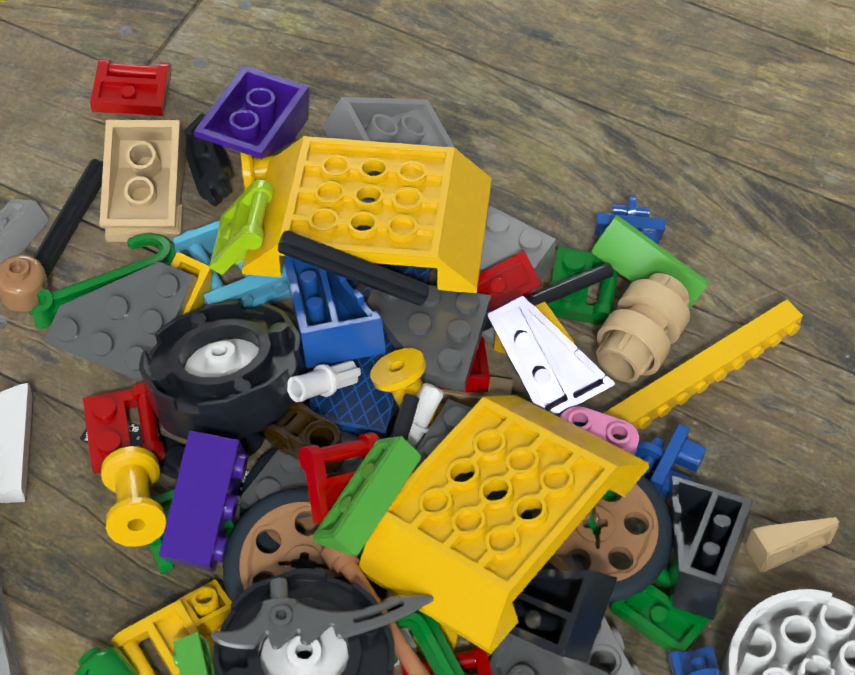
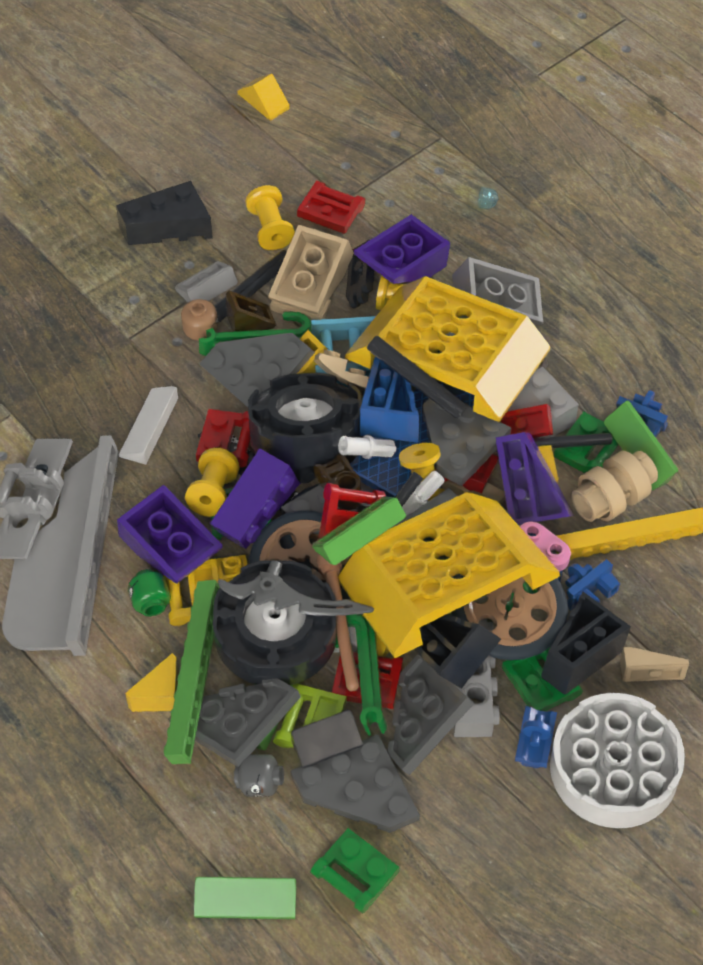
camera: 25 degrees right, 0 degrees up
(73, 139) = (265, 203): none -> yellow piece
(81, 256) = (247, 313): none -> dark brown slope
(103, 592) = (167, 535): none -> dark purple slope
(233, 287) = (334, 365): none -> tan slope
(241, 227) = (355, 327): lime plate -> none
(321, 20) = (487, 198): none -> clear light blue hinge

